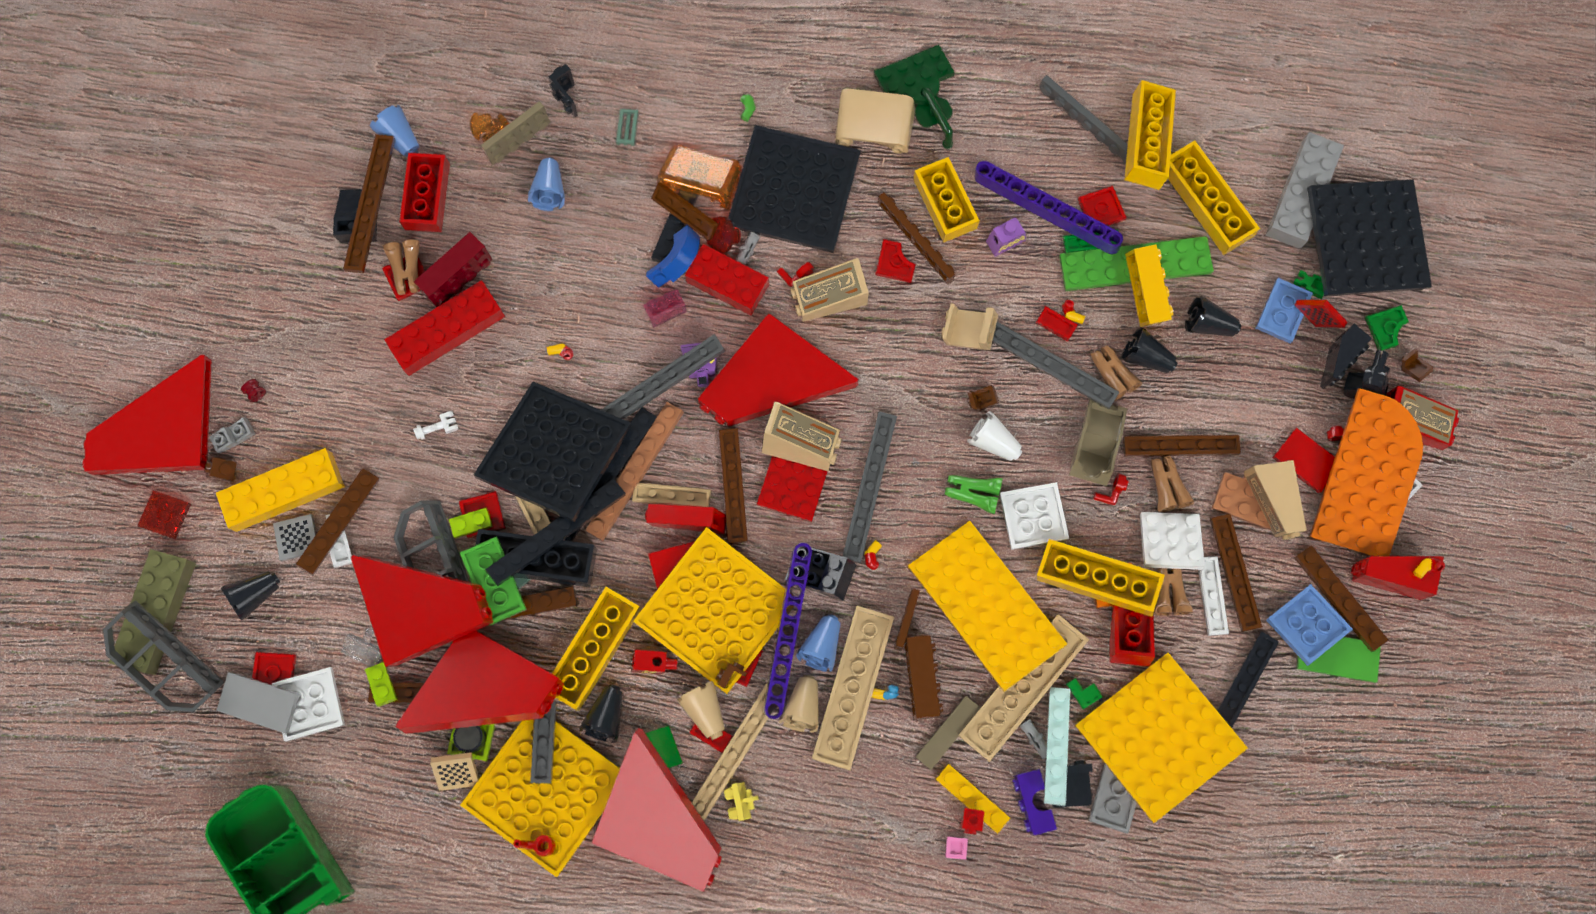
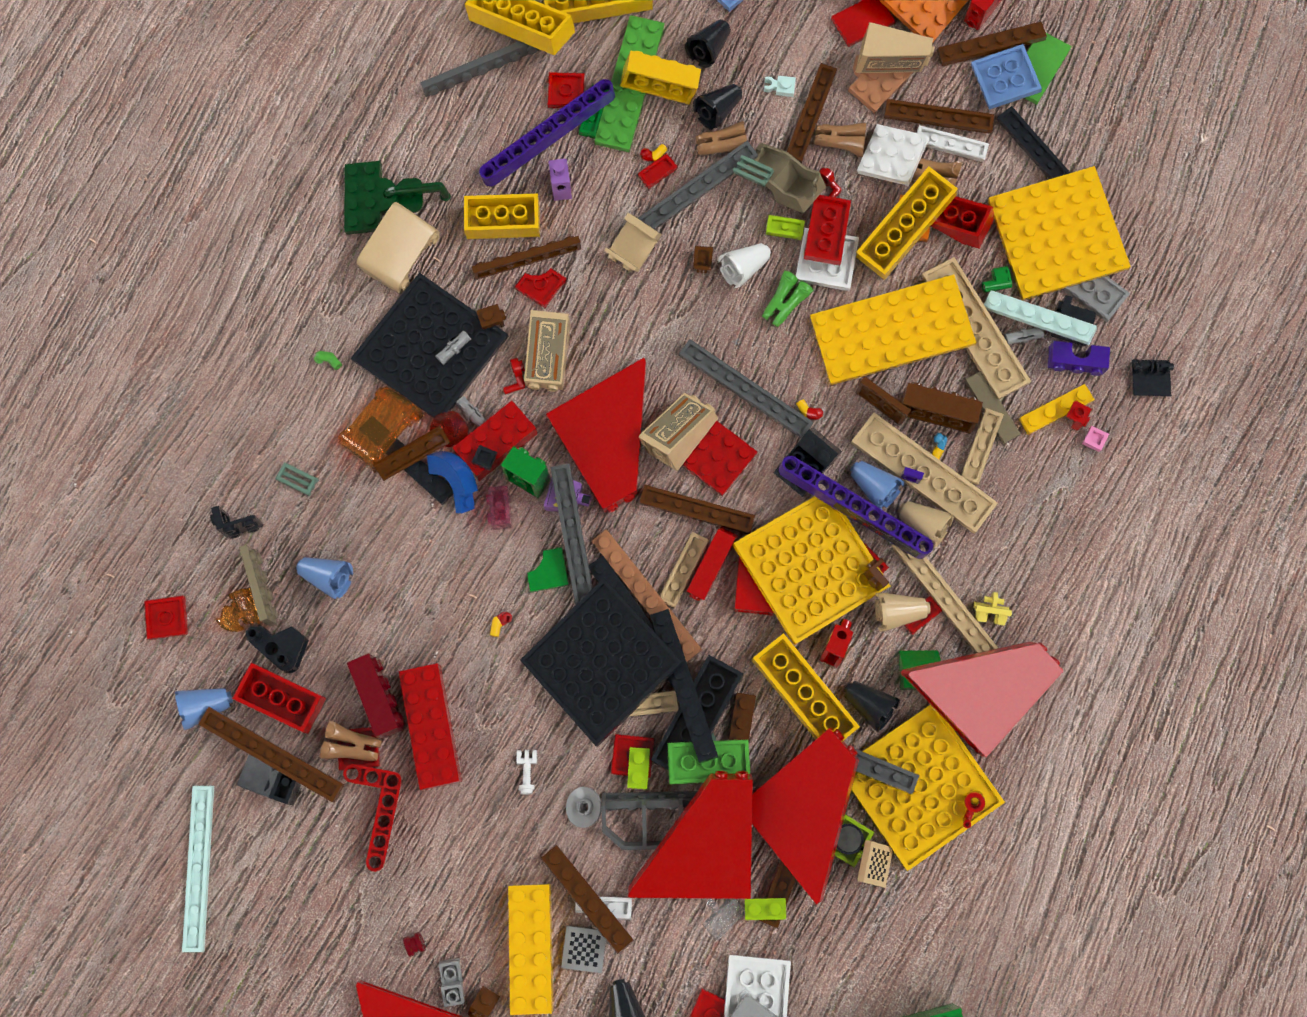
camera: 70 degrees left, 0 degrees up
(261, 189) = (198, 869): none -> light aqua tile
(358, 316) = (381, 809): none -> red beam
(419, 487) = (577, 804): none -> light grey dish
(464, 73) = (166, 617): none -> red tile
(469, 177) = (289, 642): none -> black piece
(623, 376) = (550, 572): none -> green tile
(702, 274) = (484, 457): none -> black tile
(703, 314) = (526, 471): none -> green brick
(799, 207) = (453, 347): none -> light grey pin
(842, 679) = (912, 475): none -> dark purple tile
(844, 229) = (491, 316): none -> reddish brown bracket
(902, 735) = (982, 446): none -> tan tile
(1046, 886) = (1151, 377): none -> black hinge
(1049, 464) = (785, 227): none -> lime plate
(1061, 503) = (827, 230): none -> red plate
(1089, 395) = (744, 159): none -> sand green tile
(1199, 408) = (783, 85): none -> light aqua plate

